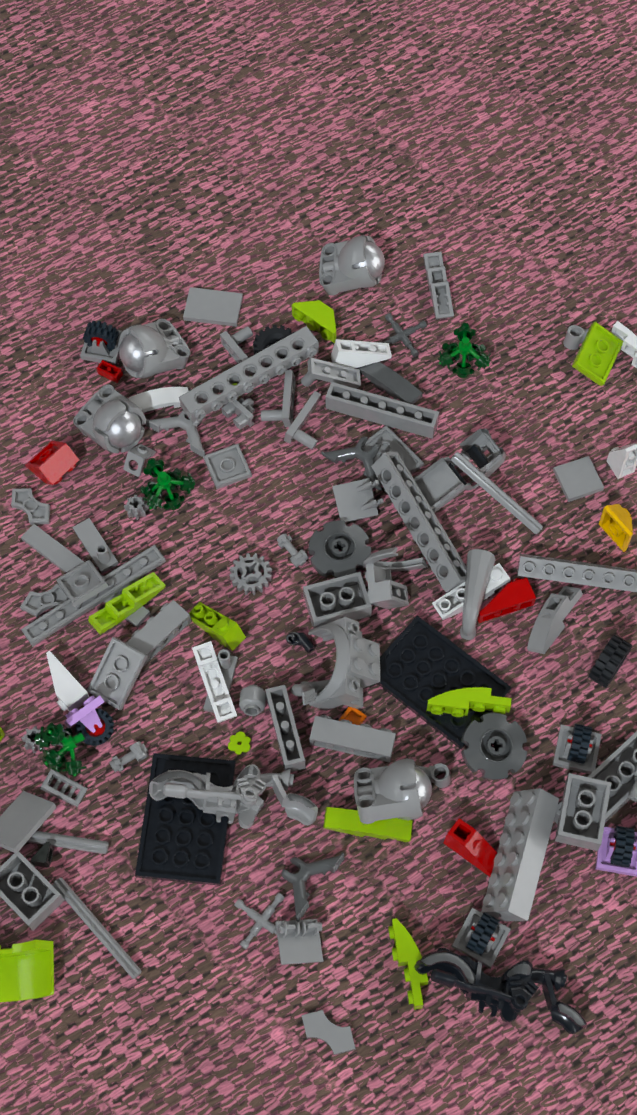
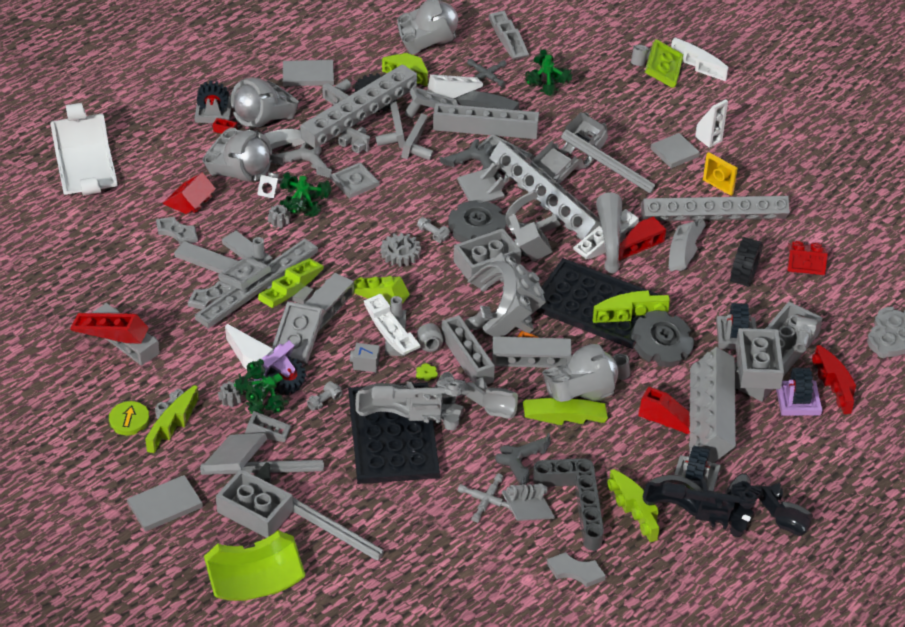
camera: 15 degrees left, 20 degrees down
(180, 715) = (365, 357): none -> light grey brick
(300, 639) = (460, 291): black arm -> none
(358, 941) = (582, 476): none -> dark grey beam

